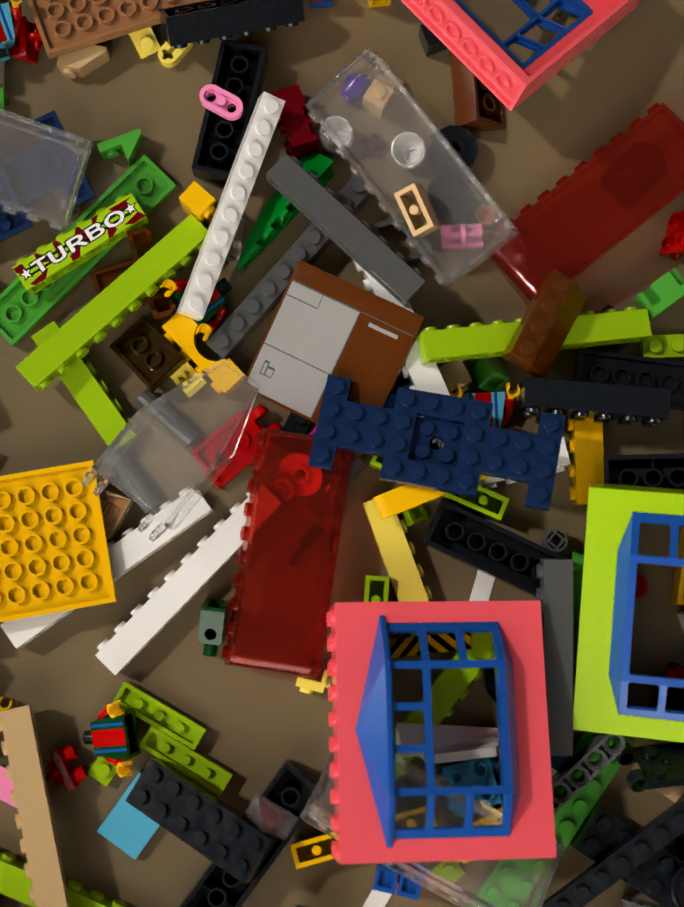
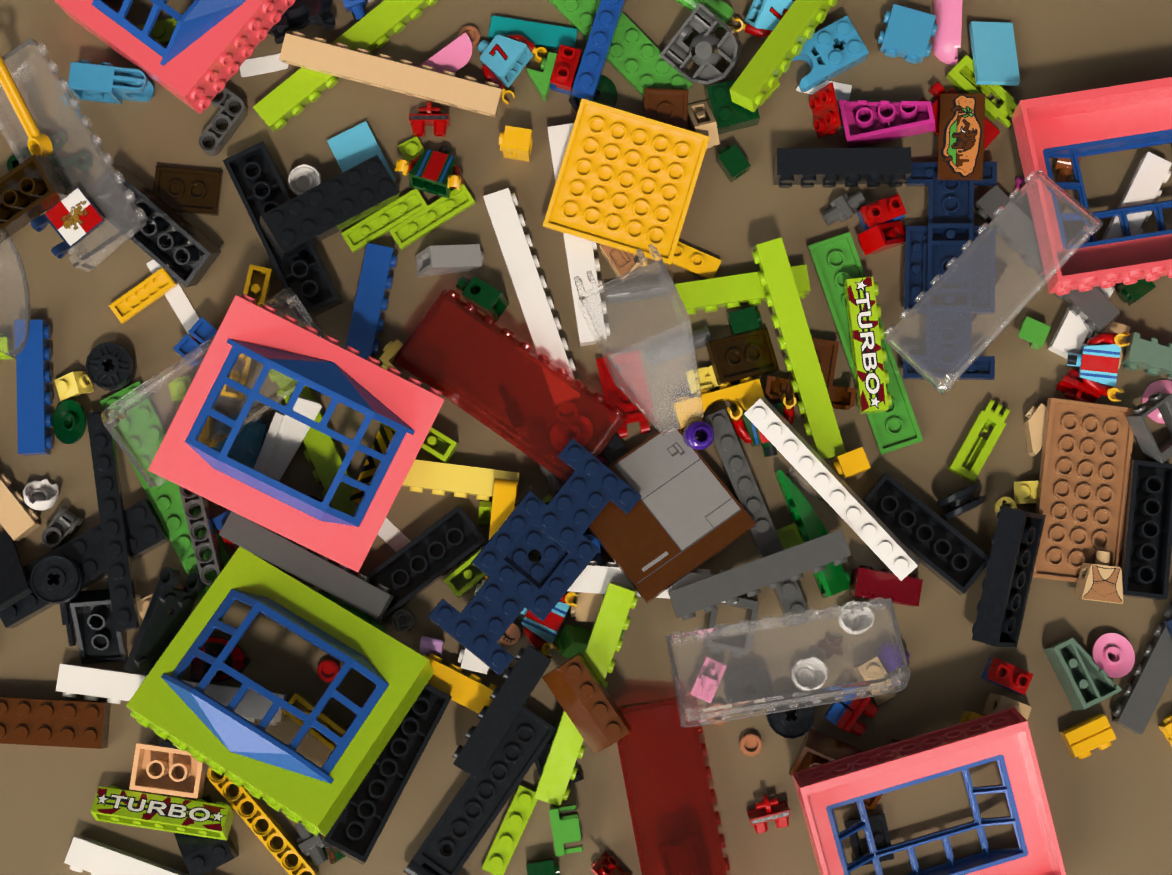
camera: 120 degrees right, 0 degrees up
(47, 670) = (516, 143): none -> yellow brick
(78, 440) = (695, 261): none -> yellow plate
(114, 369) = (744, 320): none -> dark green brick
(127, 143) = (939, 431): bright green slope -> none
(130, 105) = (974, 449): none -> lime hinge
(181, 90) = (962, 501): none -> black wheel
(185, 861) = (303, 179): none -> white hair
(193, 677) = (448, 259): none -> light grey slope
(222, 103) = (930, 527): bright pink plate -> none
(243, 354) = (704, 438): none -> dark purple head
(270, 817) = (301, 264): clear slope -> none
(271, 730) = (371, 299): none -> blue brick
(293, 229) = (789, 536): none -> lime plate
(417, 210) = (745, 646): tan brick -> none
(429, 97) = (847, 719): none -> red hips
(497, 174) = (750, 744): none -> nougat tile
(515, 23) = (879, 832): none -> black plate
(549, 128) = (768, 811): none -> red hips
(562, 503) = (431, 645): none -> lavender slope

